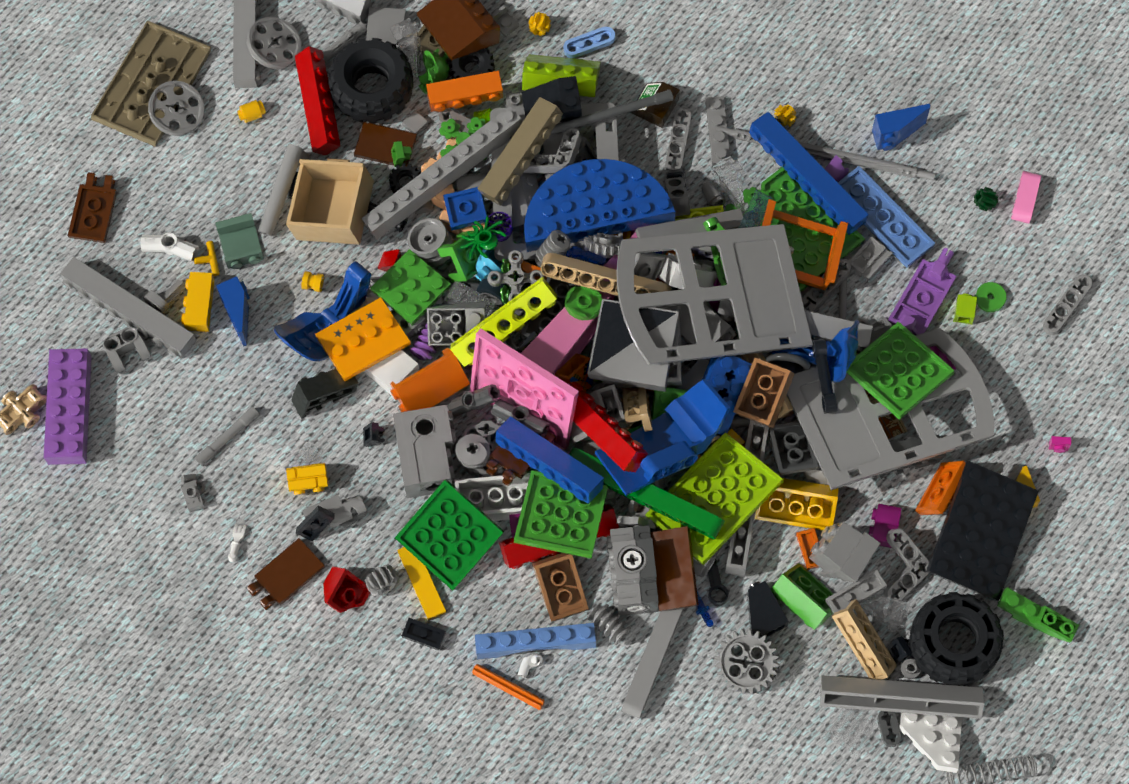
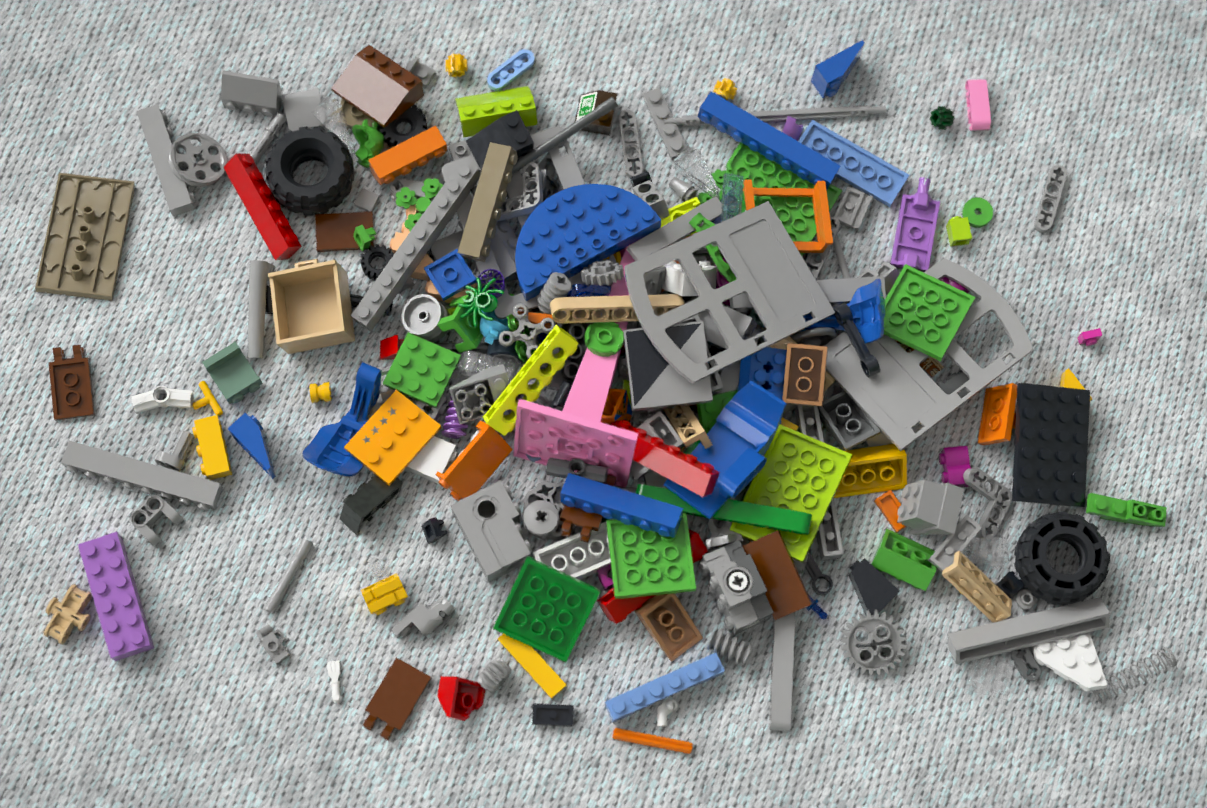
camera: 25 degrees left, 5 degrees up
(169, 112) = (115, 261): light grey wedge -> none
(251, 111) = (198, 236): yellow brick -> none
(315, 523) = (409, 638): black plate -> none
(474, 400) = (524, 465): dark grey piece -> none
(483, 114) = (433, 173): clear neon green slope -> none

